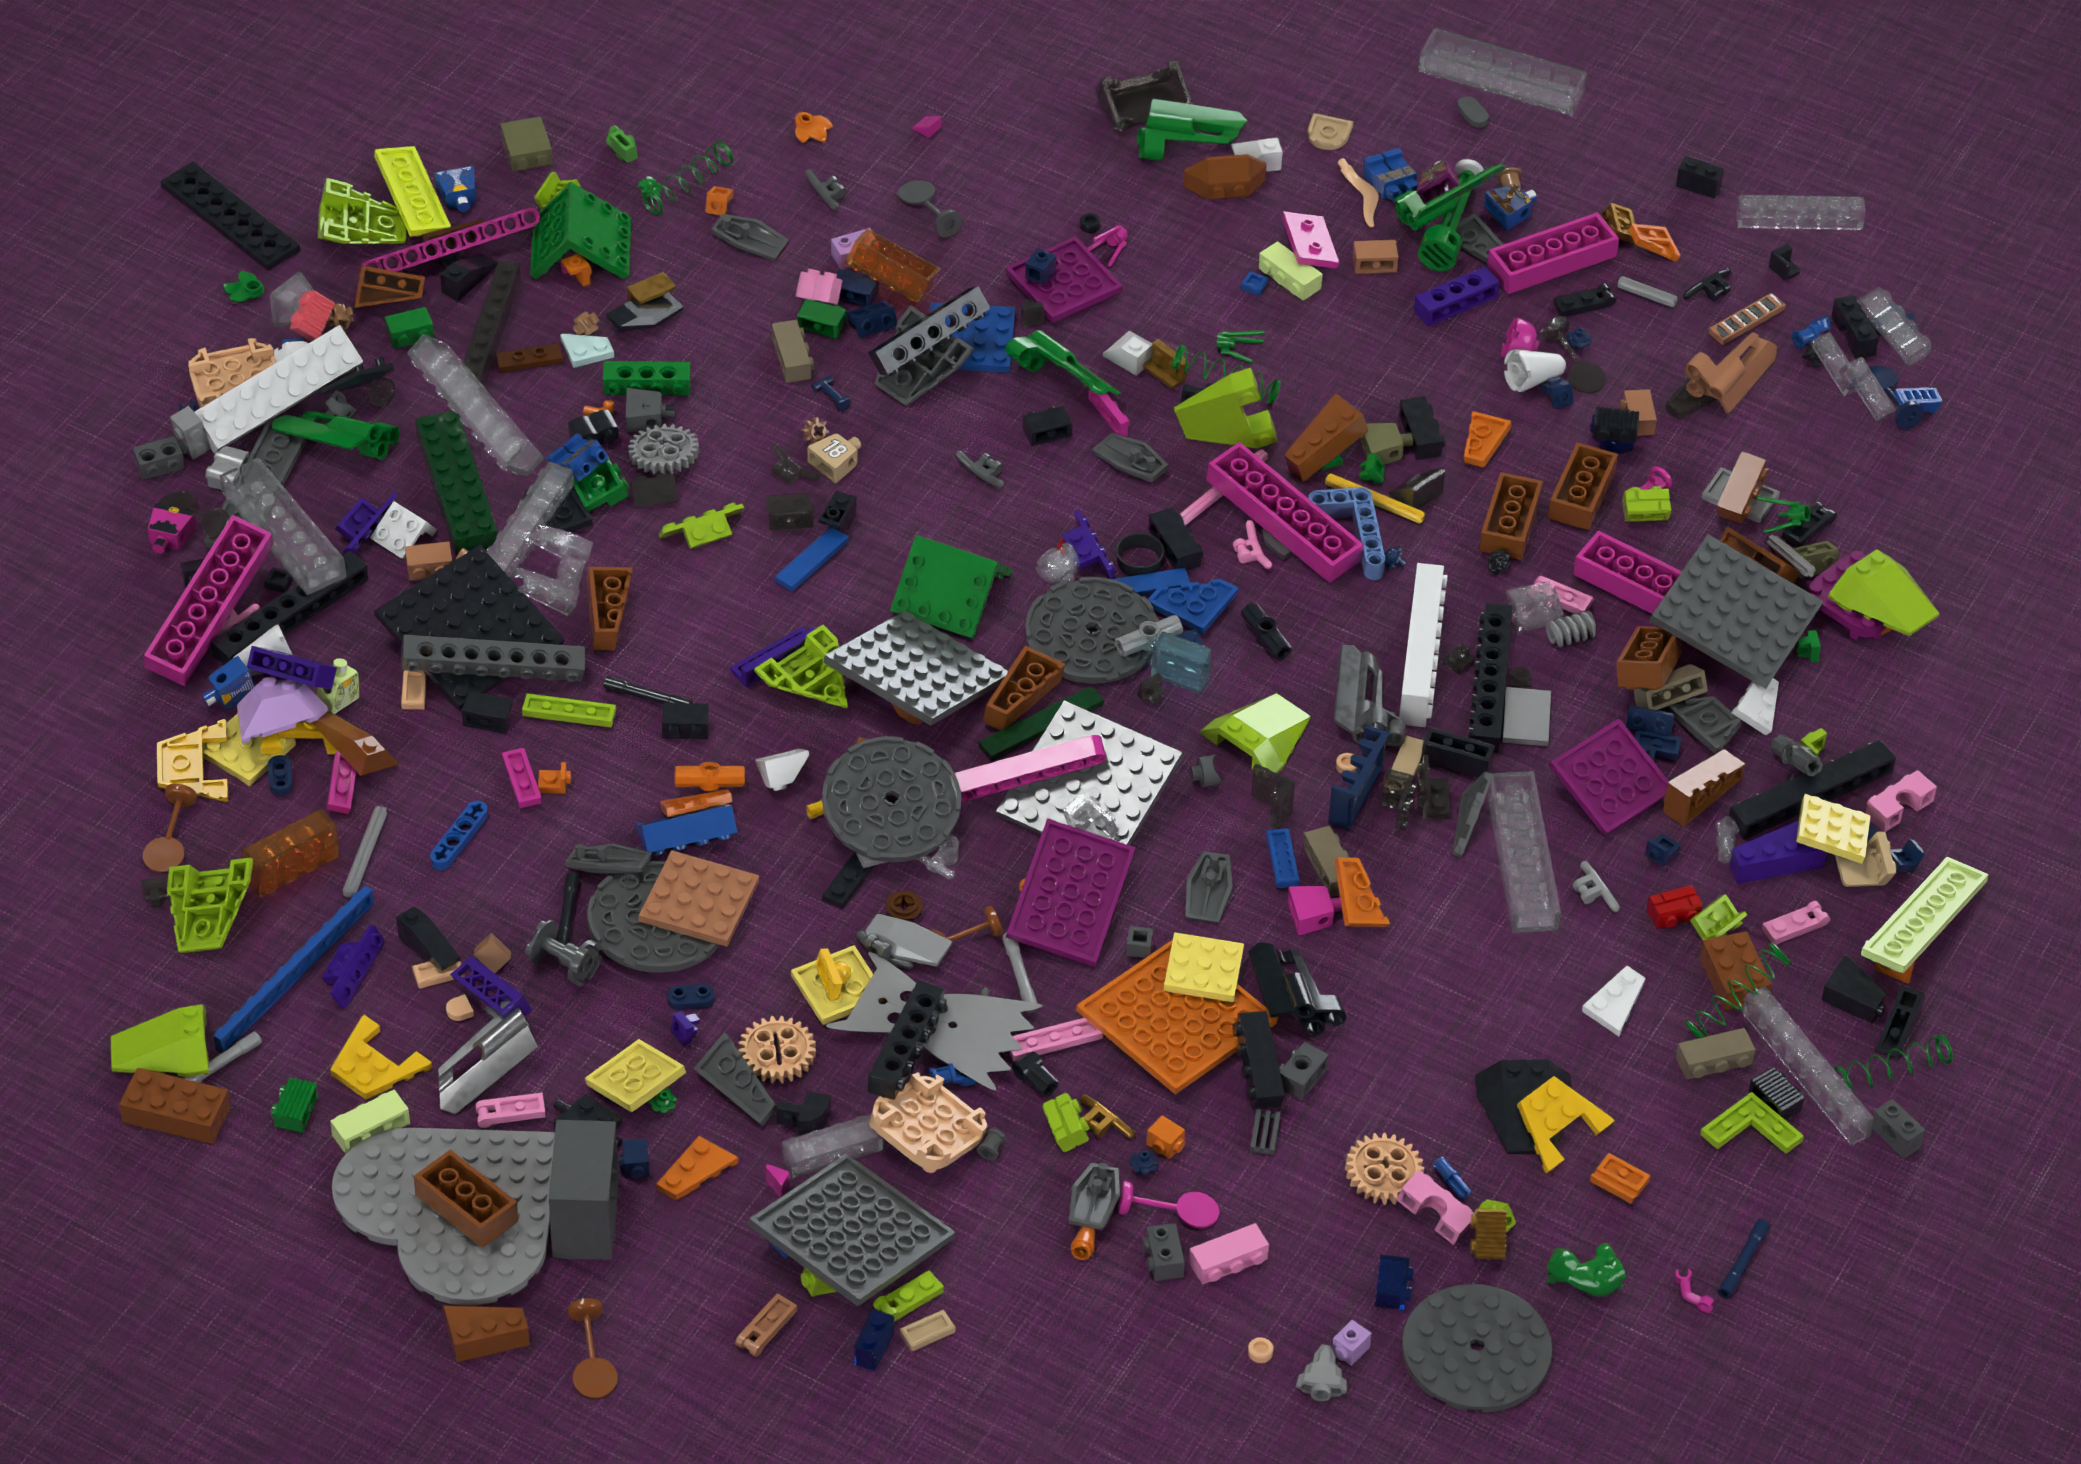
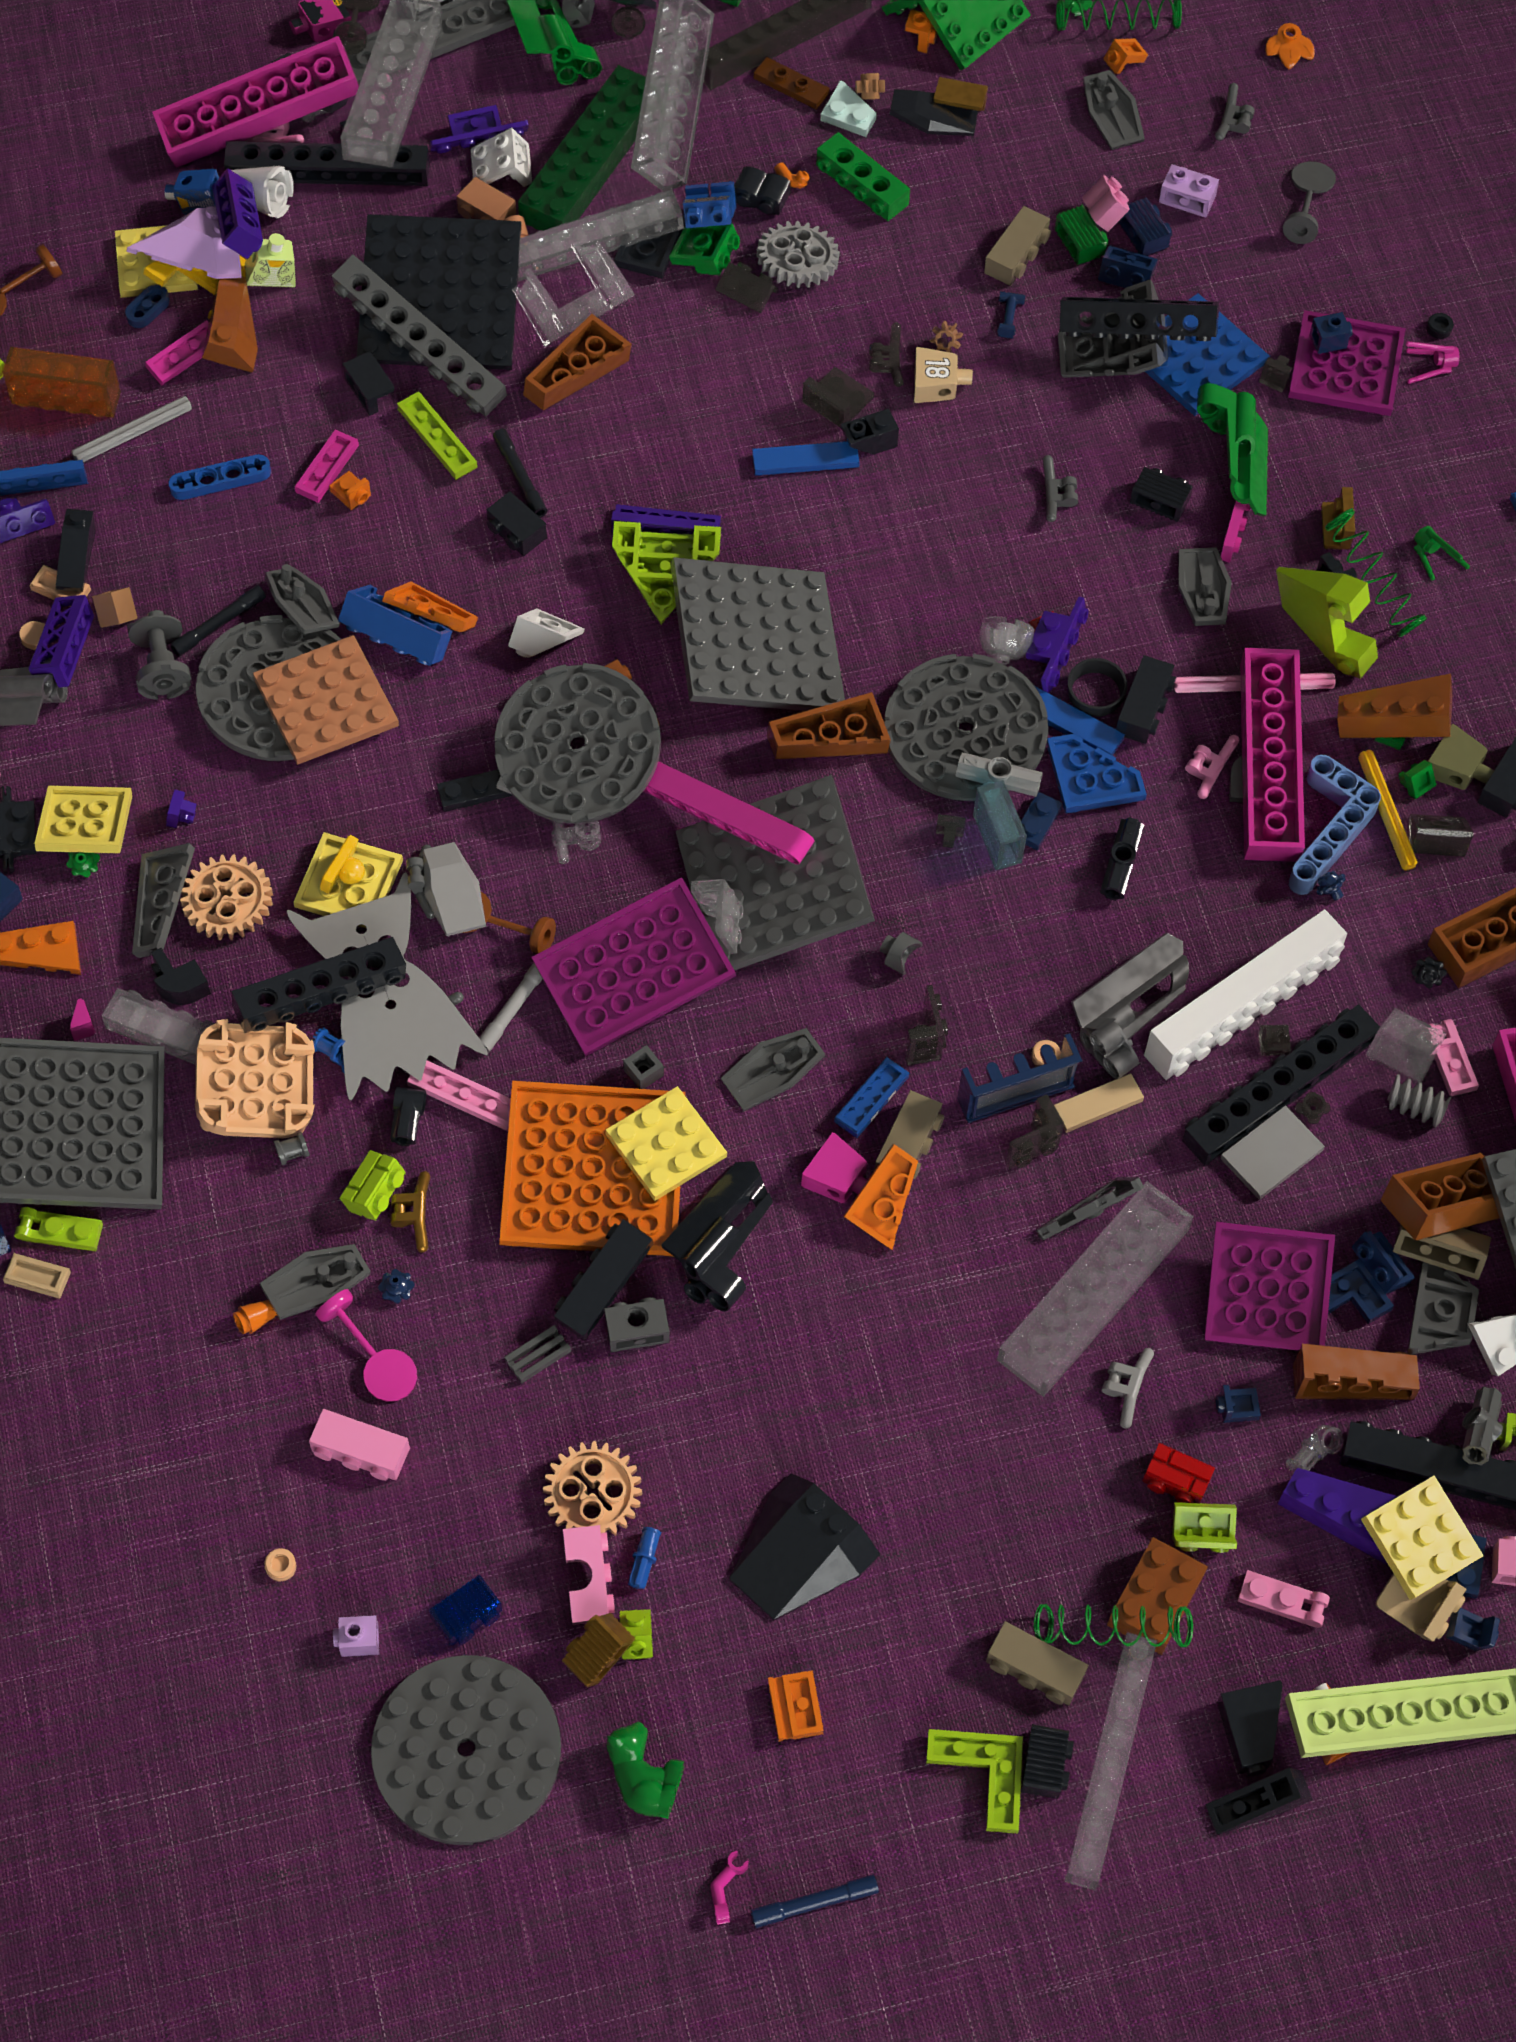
camera: 45 degrees right, 15 degrees up
(182, 761) = (87, 232): yellow wing -> none
(414, 690) = (337, 318): light nougat tile -> none
(645, 410) = (825, 205): dark grey torso -> none
(690, 996) = (220, 785): dark blue plate -> none
(705, 529) = (746, 357): lime bracket -> none
(709, 776) = (471, 592): orange piece -> none
(892, 265) = (1191, 230): clear orange brick -> none
(912, 901) = (492, 843): reddish brown gear -> none
(928, 125) = (1399, 121): dark pink slope -> none
(946, 586) = (884, 573): green bracket -> none
(1035, 725) = (792, 774): dark green tile -> none
(1130, 352) = (1325, 480): white slope -> none
(1164, 1252) = (307, 1390): dark grey brick -> none
(1166, 1137) = (440, 1279): orange brick -> none
(1262, 730) = (1003, 956): lime wedge -> none
(1322, 1376) = (299, 1642): light grey rock -> none
(1434, 793) = (1084, 1153): clear smoke bracket -> none
(1457, 752) = (1152, 1134): black brick -> none
(1551, 1110) = (803, 1577): yellow wing -> none
(1615, 1000) = (1010, 1518): white wing -> none
(1898, 1129) = (1120, 1912): dark grey brick -> none
(1937, 1045) = (1269, 1862): green piece -> none

